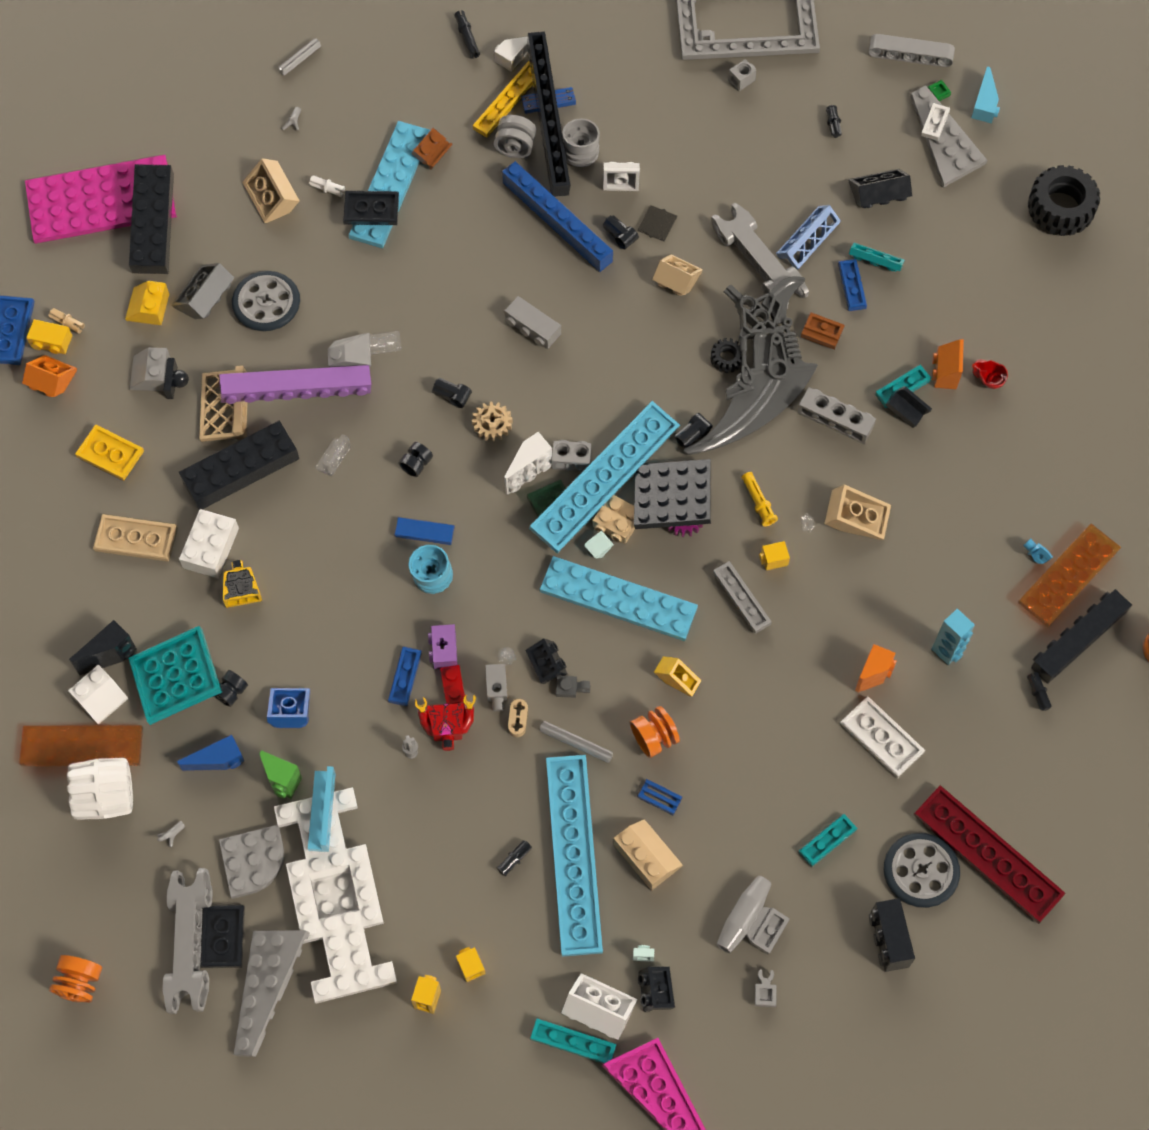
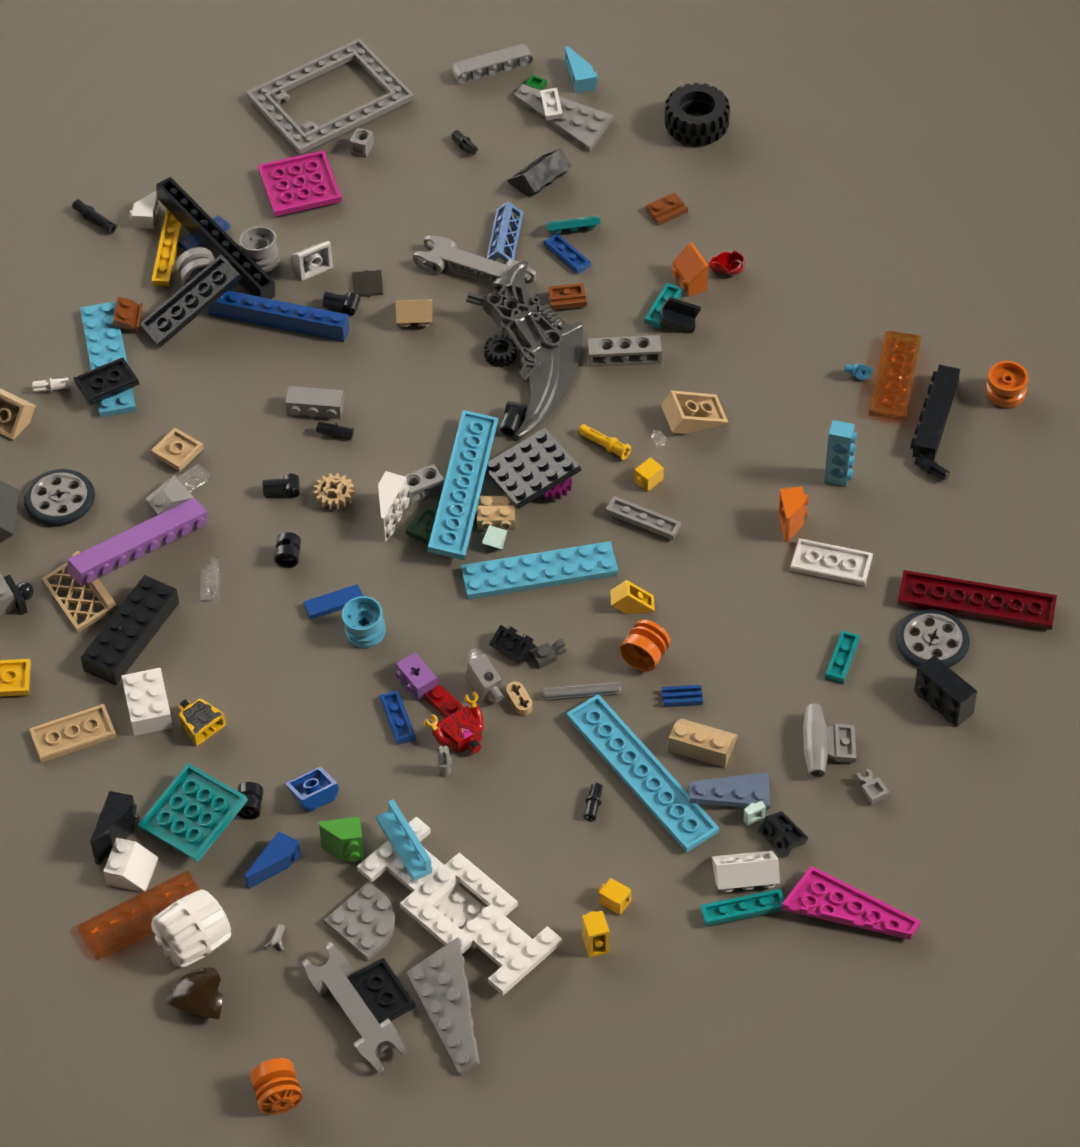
camera: 30 degrees left, 15 degrees down
(71, 850) = (198, 993): none -> dark brown brick
(389, 306) = (177, 449): none -> tan plate
(488, 165) = (190, 300): none -> black plate
(533, 359) = (335, 430): none -> black axle
(642, 923) = (732, 791): none -> sand blue wing
(662, 90) = (299, 183): none -> dark pink plate
(973, 284) = (666, 209): none -> dark orange plate

